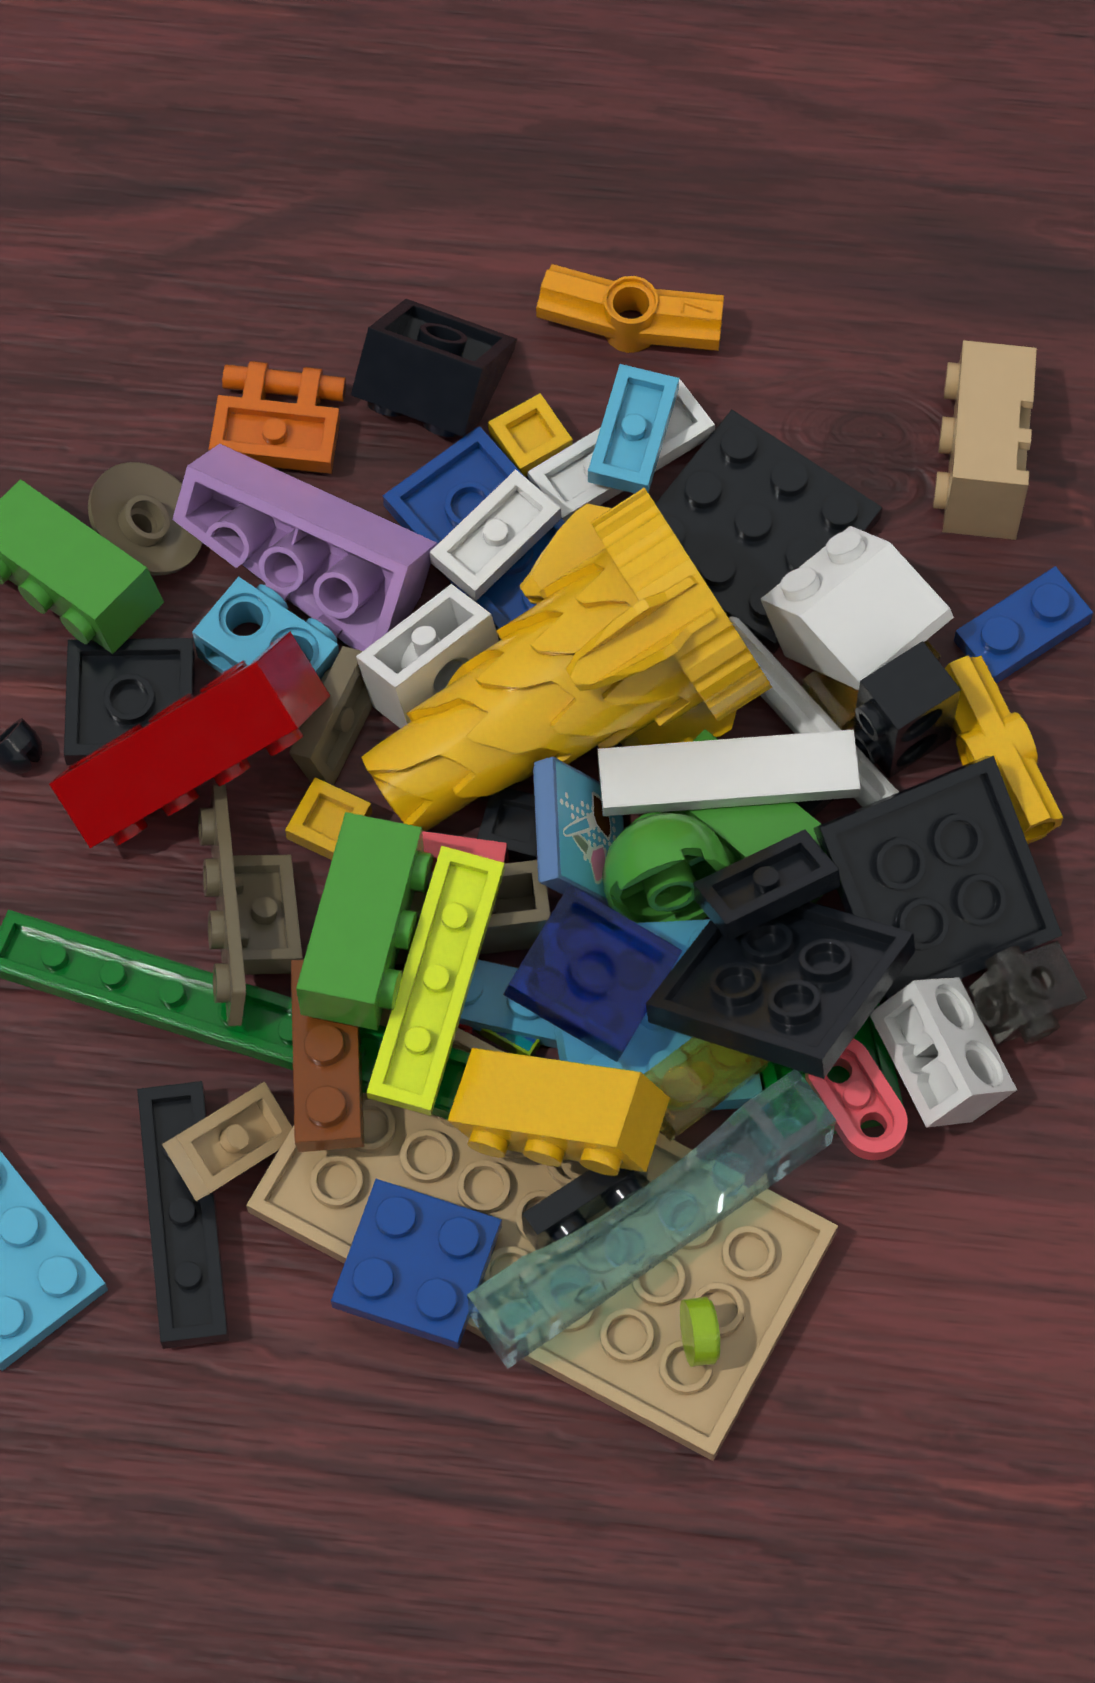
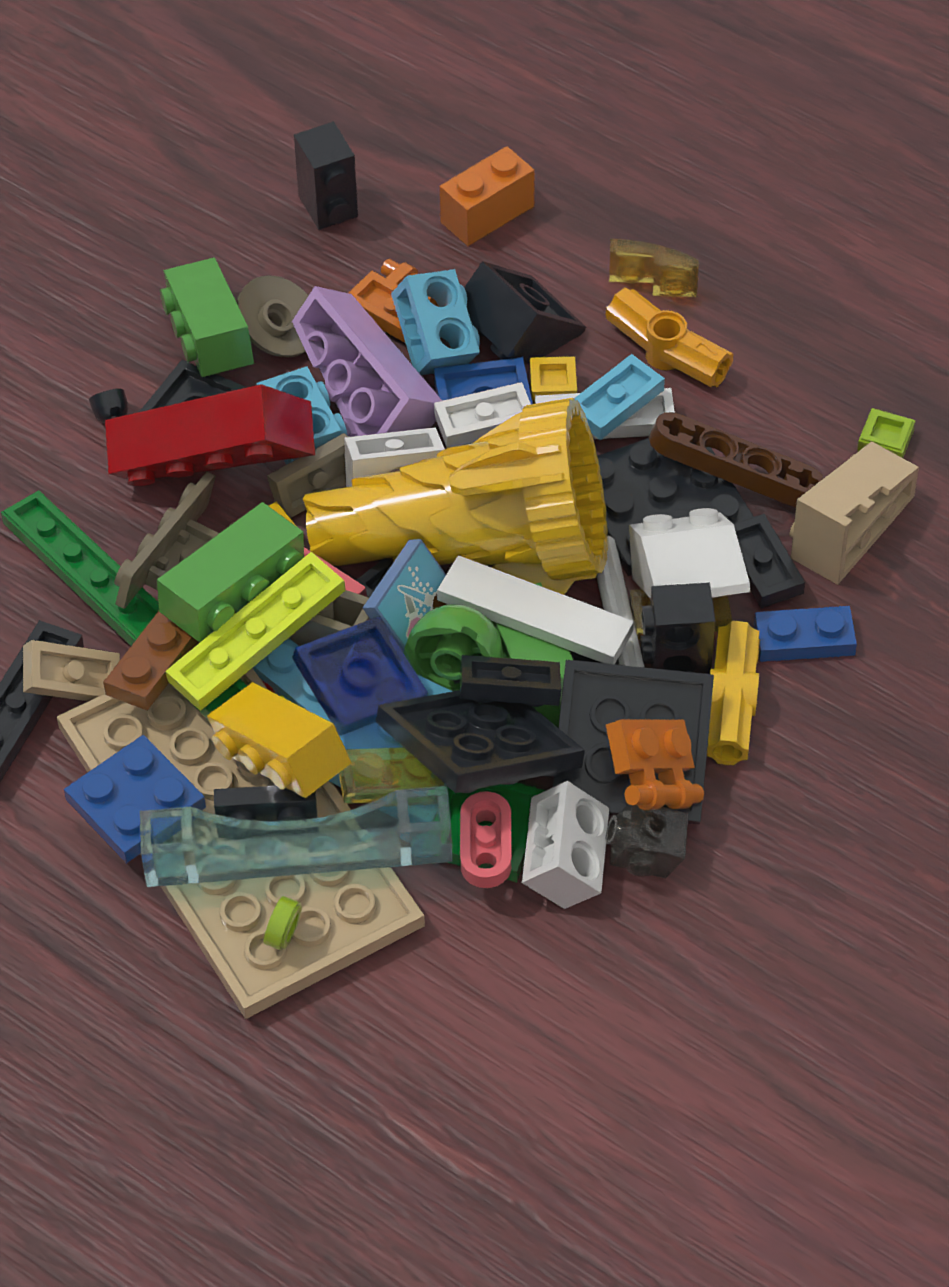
camera: 30 degrees right, 15 degrees down
(83, 292) = (326, 175): none -> black brick
(290, 217) = (487, 196): none -> orange brick
(345, 443) = (425, 323): none -> medium azure brick
(570, 214) = (668, 269): none -> clear yellow slope
(892, 423) = (673, 438): none -> reddish brown beam
(939, 558) = (767, 563): none -> black plate
(954, 312) = (887, 431): none -> lime tile
(992, 908) = (649, 749): none -> orange plate

